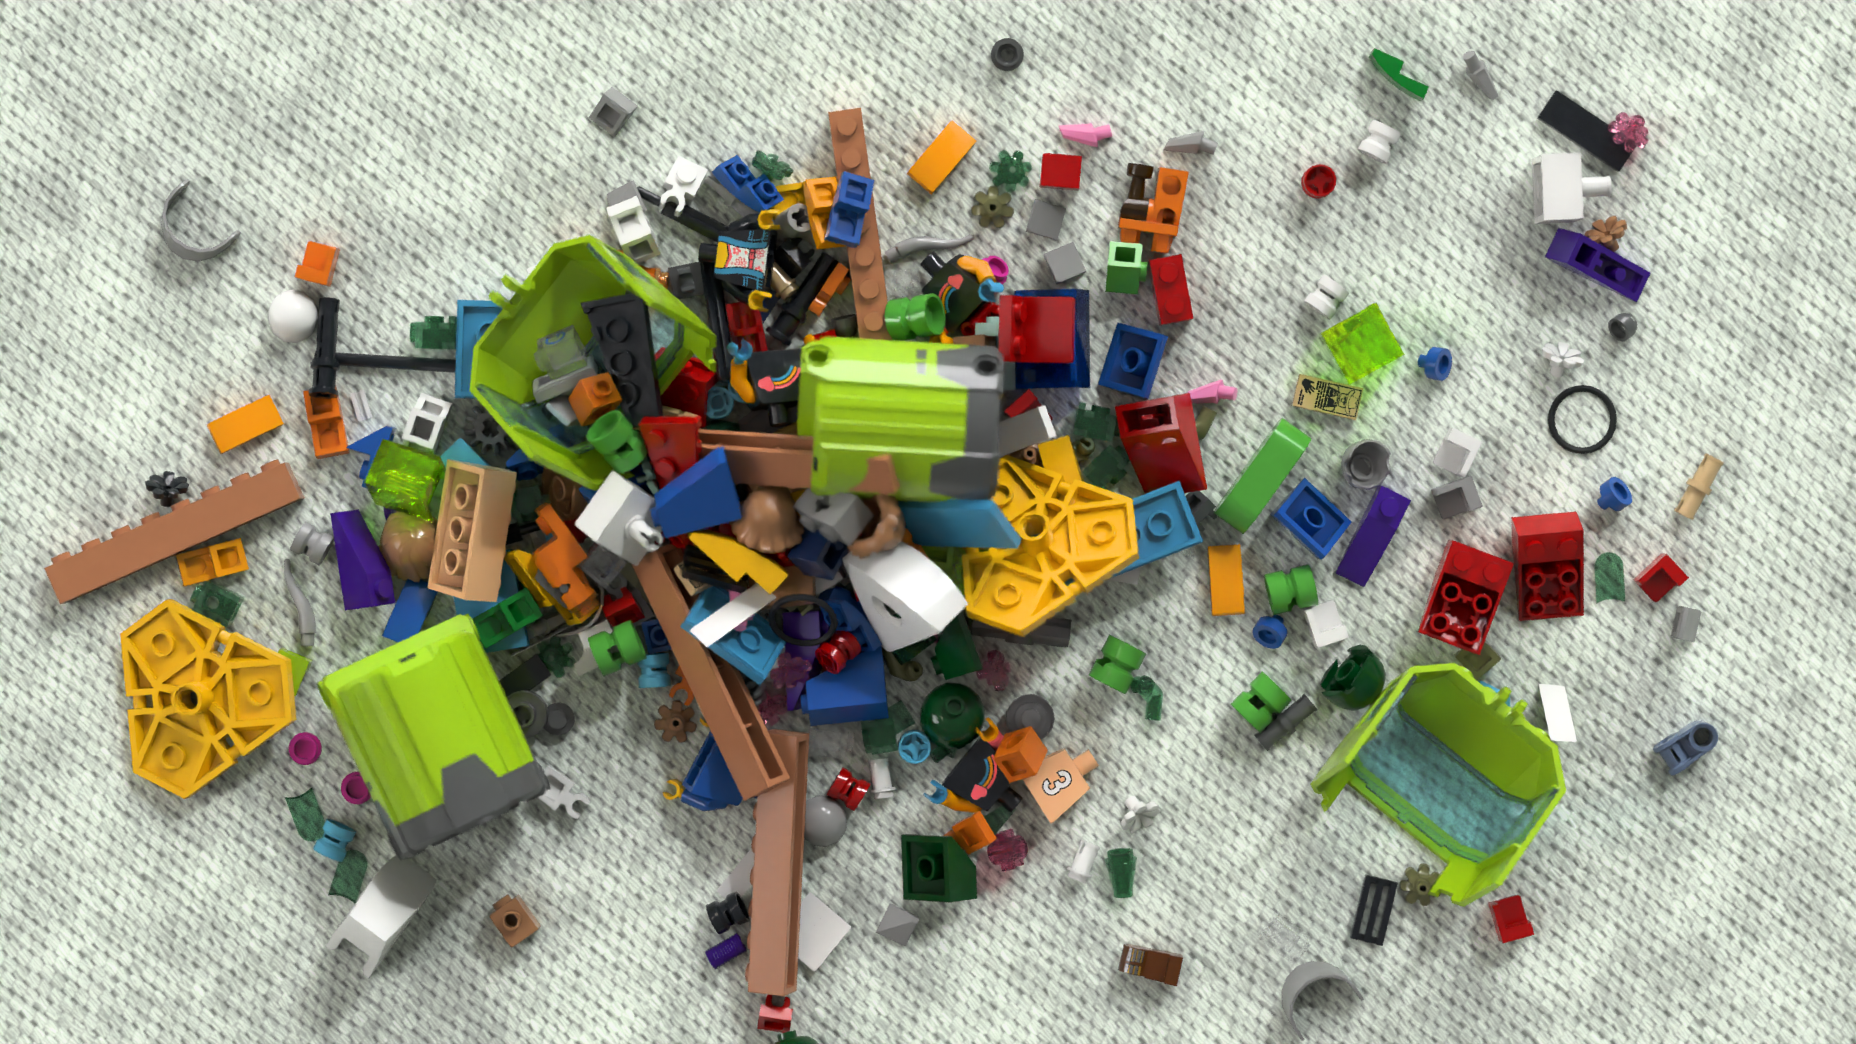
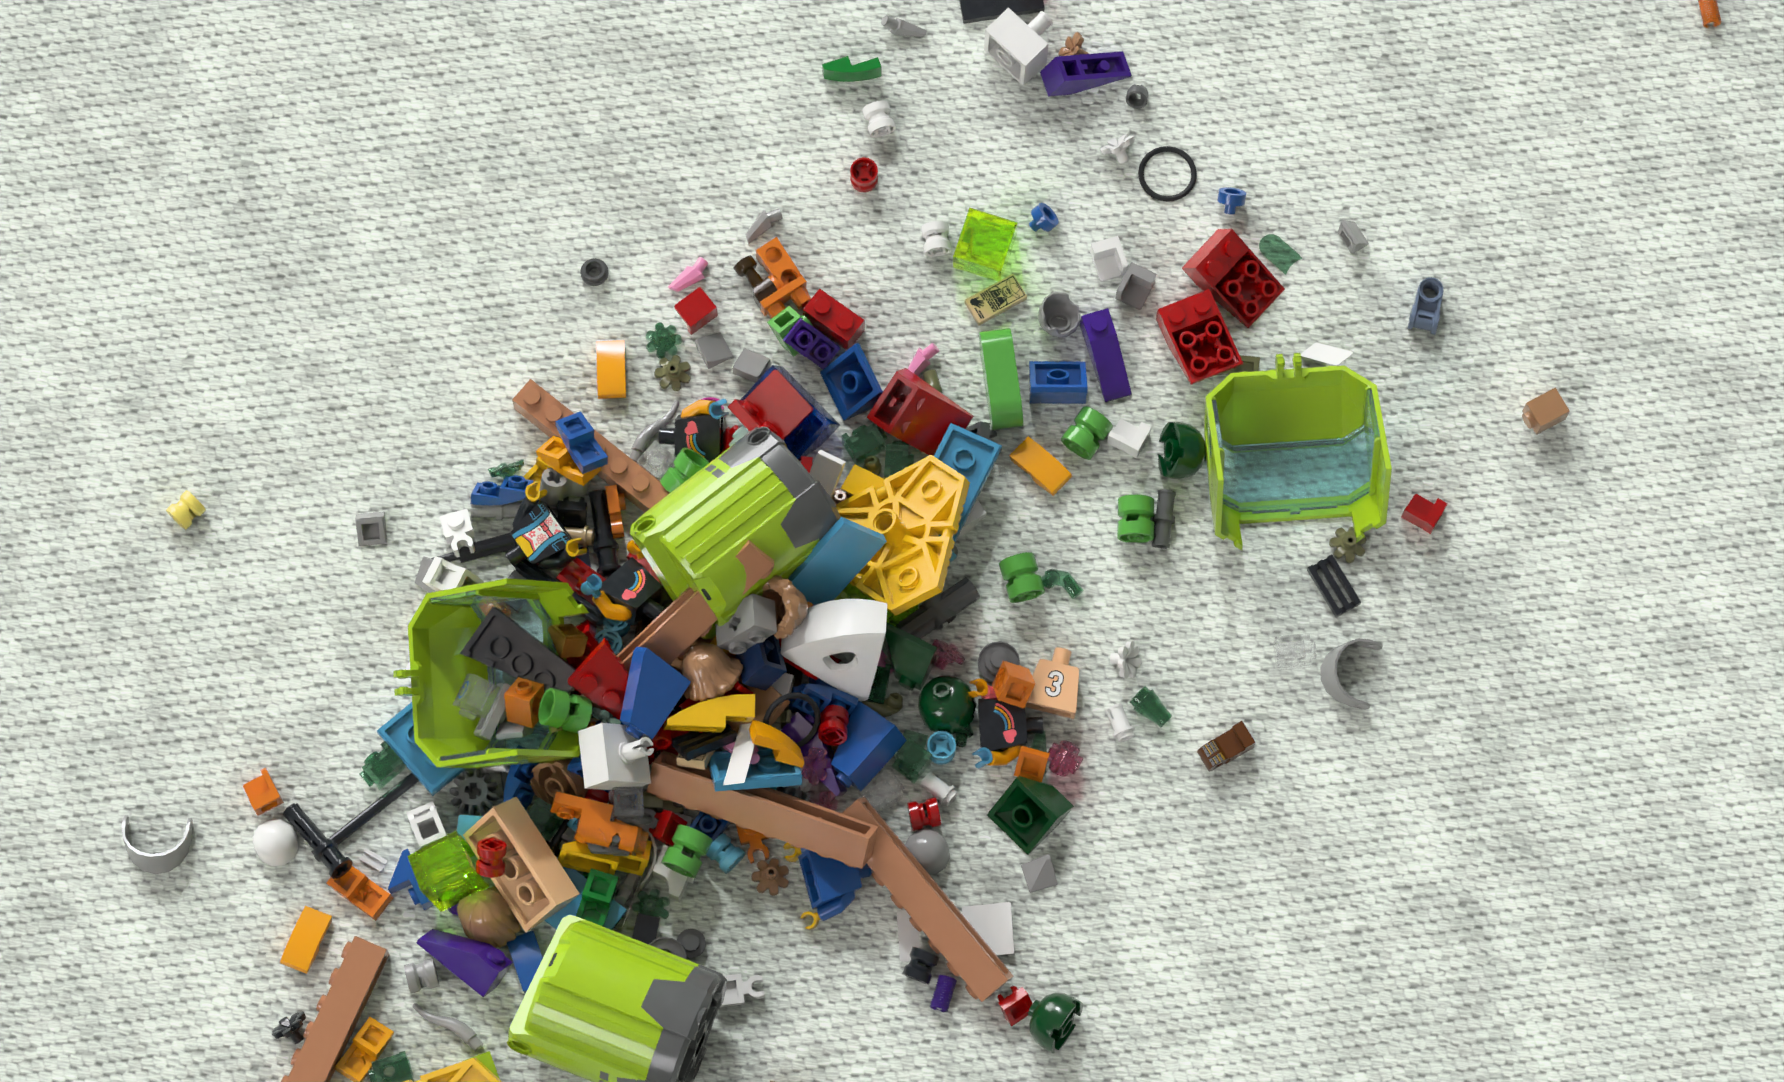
camera: 45 degrees left, 15 degrees down
(450, 504) = (491, 857): none -> red wheel
(679, 376) = (568, 640): none -> pearl gold slope
(771, 628) = (783, 747): none -> light orange slope
(1130, 296) = (811, 343): none -> dark purple slope
(1270, 631) = (1099, 472): blue tile -> none
(1660, 577) = (1309, 221): red panel -> none
(1696, 930) = (1545, 411): none -> medium nougat brick
(1699, 486) = (1278, 147): tan pin -> none

